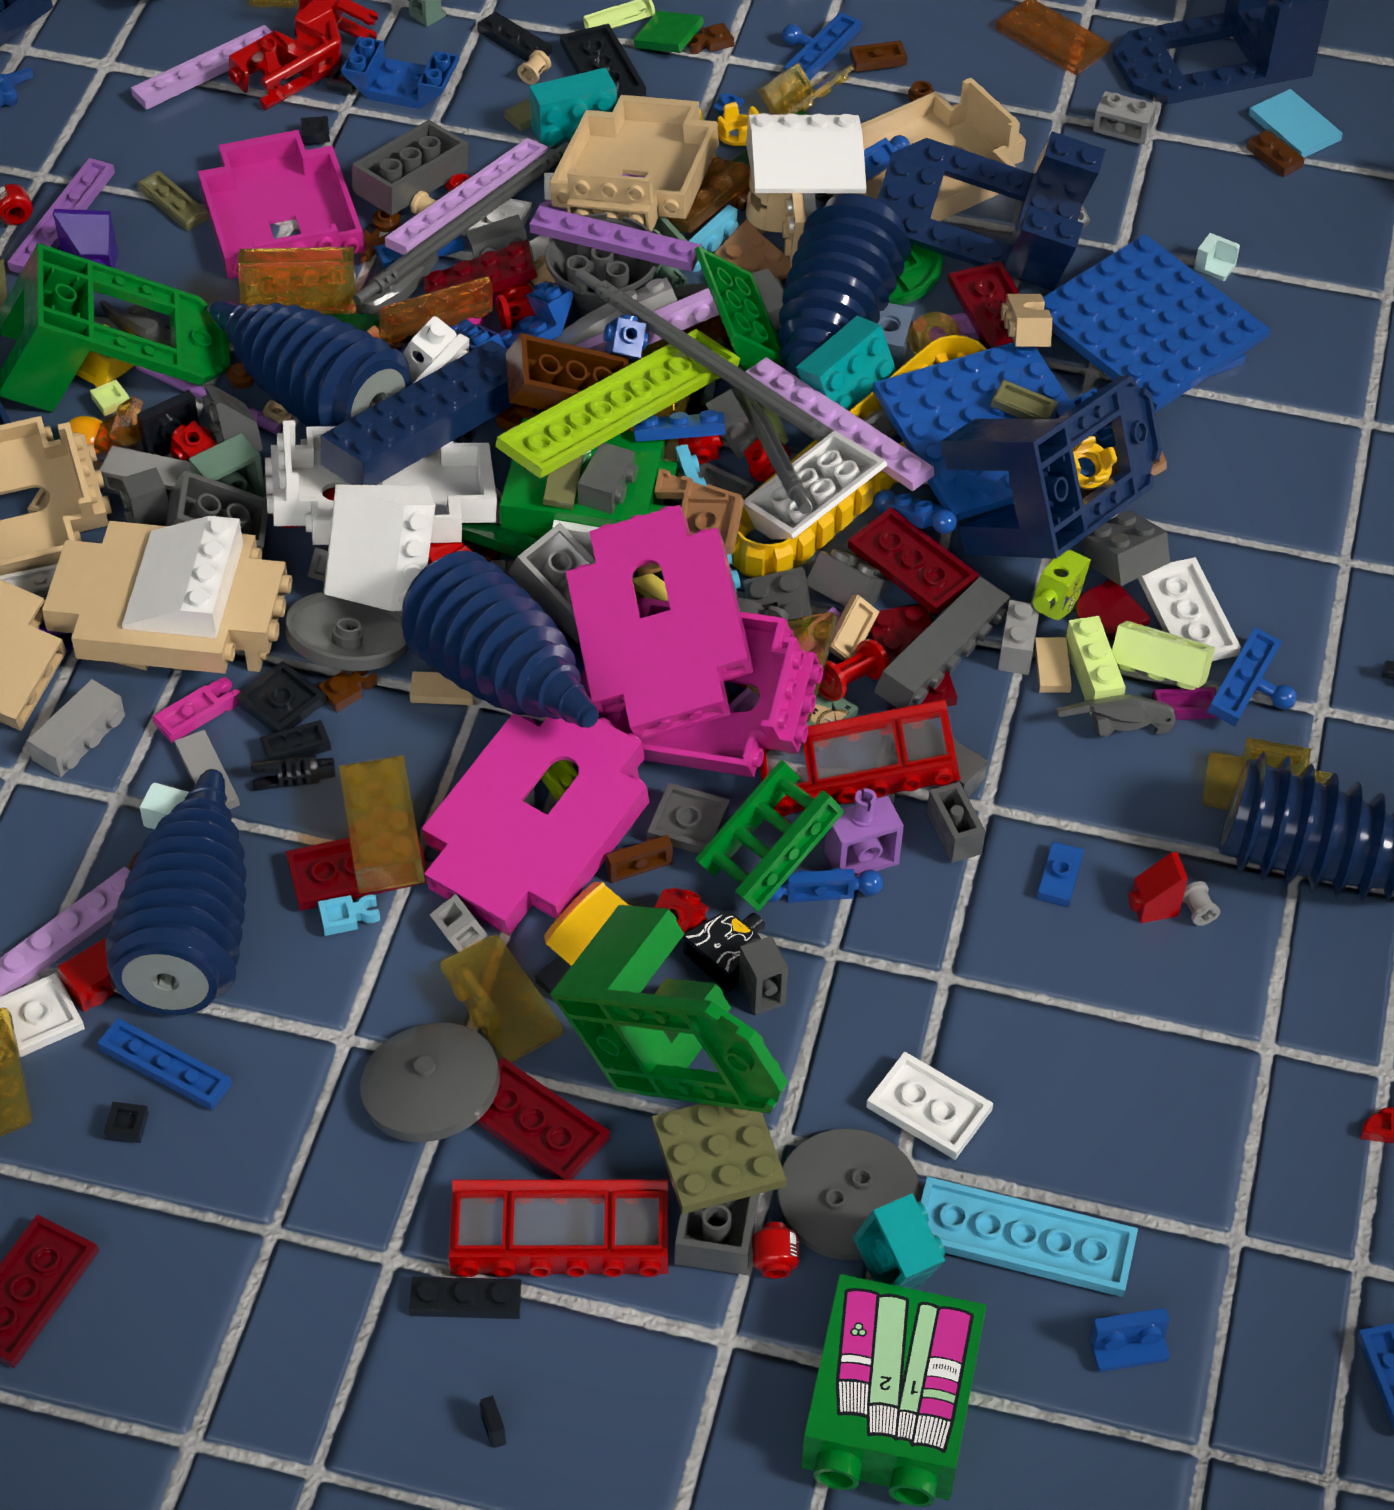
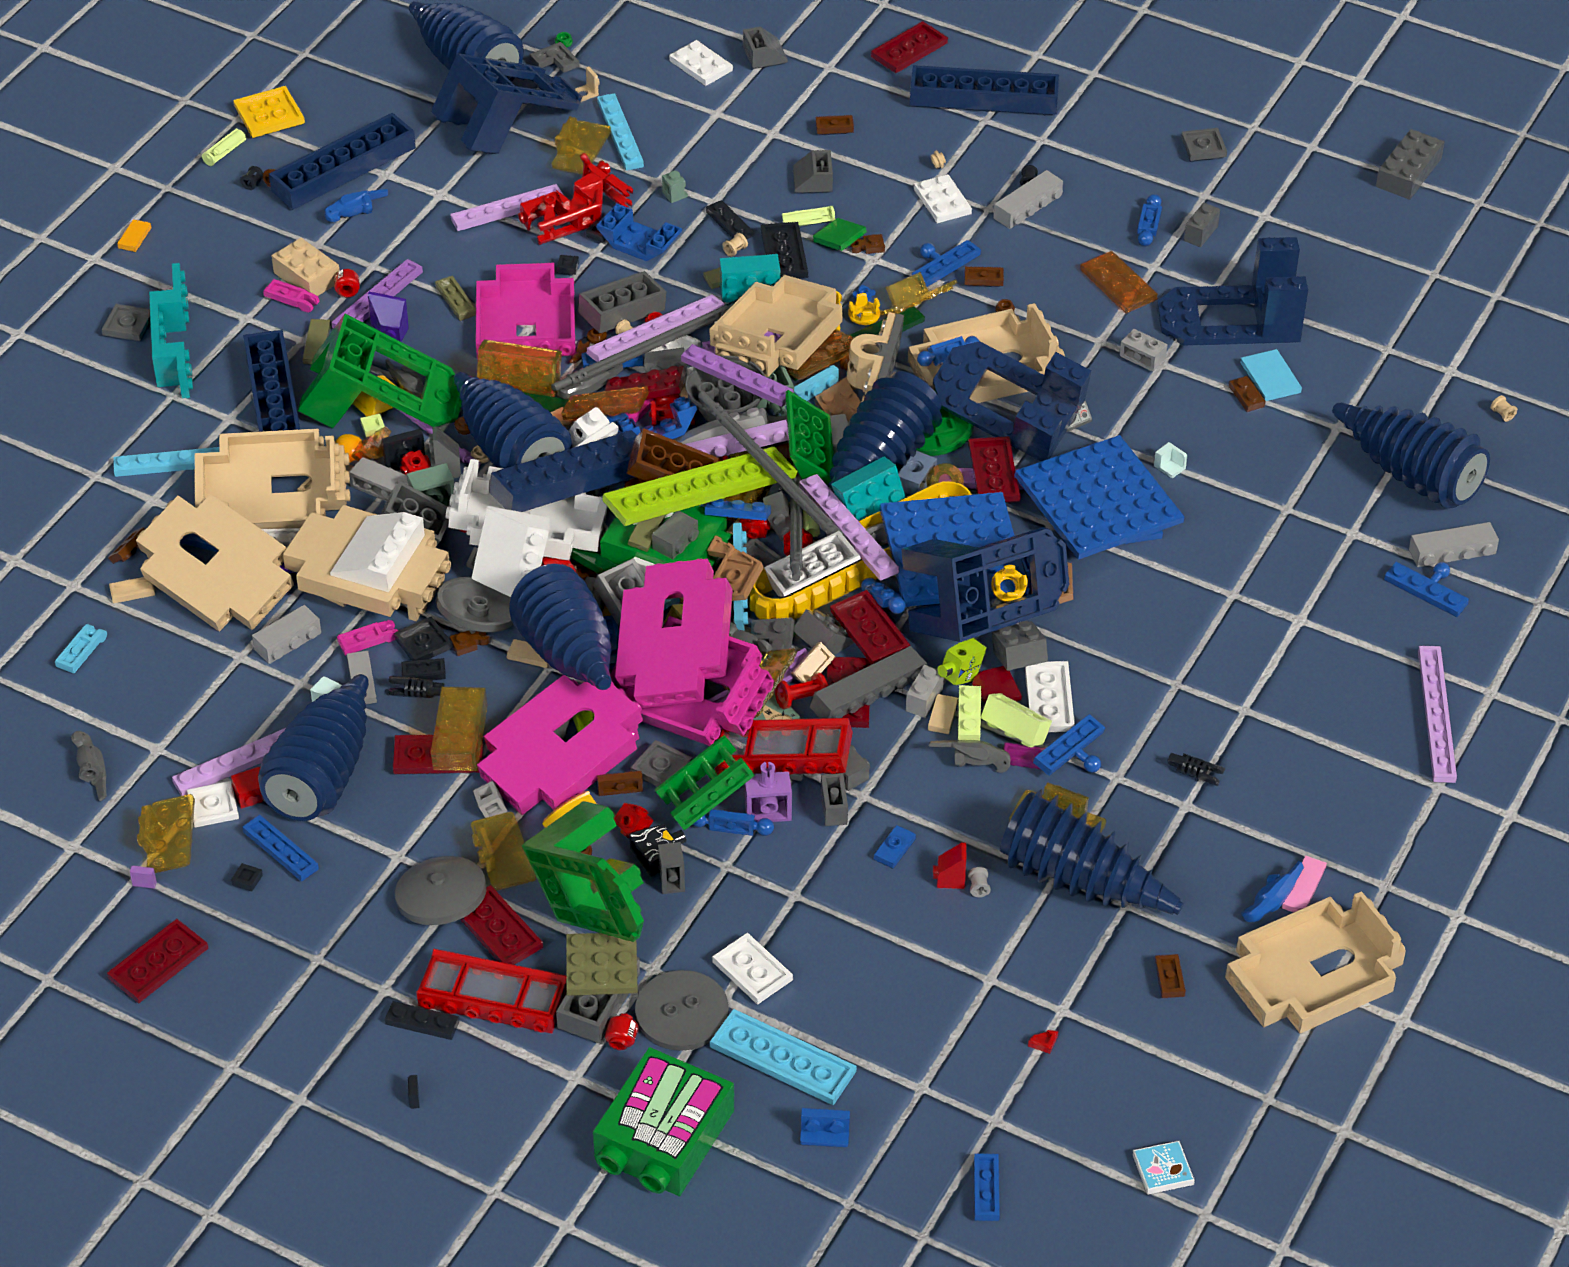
camera: 15 degrees right, 5 degrees down
(145, 498) = (372, 493): dark grey brick -> none
(342, 914) = (419, 780): medium azure plate -> none
(625, 337) = (715, 449): brick -> none
(806, 153) = (891, 338): white slope -> none
(899, 1244) = (693, 1036): teal brick -> none
(1022, 402) = (976, 533): olive tile -> none
(1027, 320) = (1003, 479): tan arch -> none

